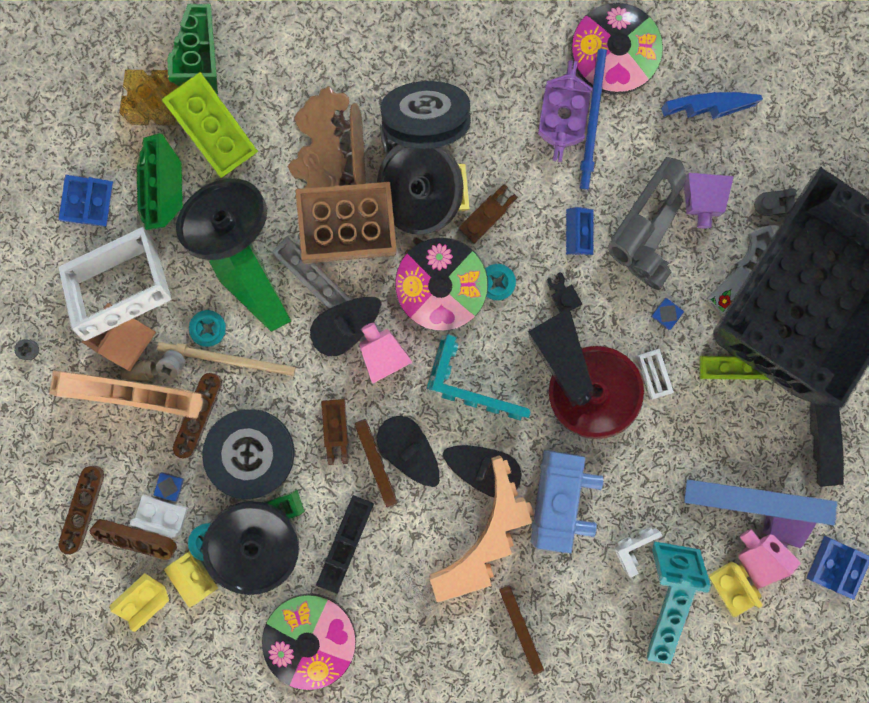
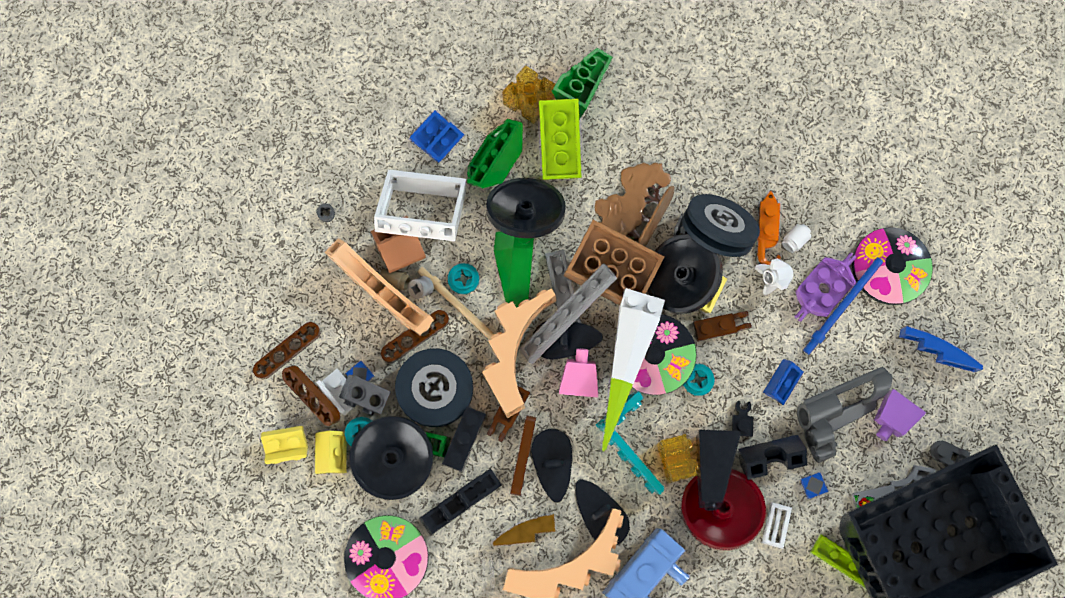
camera: 30 degrees right, 10 degrees down
(184, 501) = (365, 391): none -> black brick
(286, 340) = (515, 322): none -> light nougat arch
(309, 486) = (464, 439): none -> black arch
(331, 299) = (568, 313): none -> light grey tile
(407, 275) = (635, 329): none -> white plate
(424, 532) = (526, 531): none -> pearl gold slope
(474, 86) = (769, 226): none -> orange plate
(508, 79) = (796, 238): none -> white brick
(510, 130) = (775, 275): none -> white brick
(525, 374) = (677, 458): none -> clear yellow brick
(624, 297) = (786, 450): none -> black arch

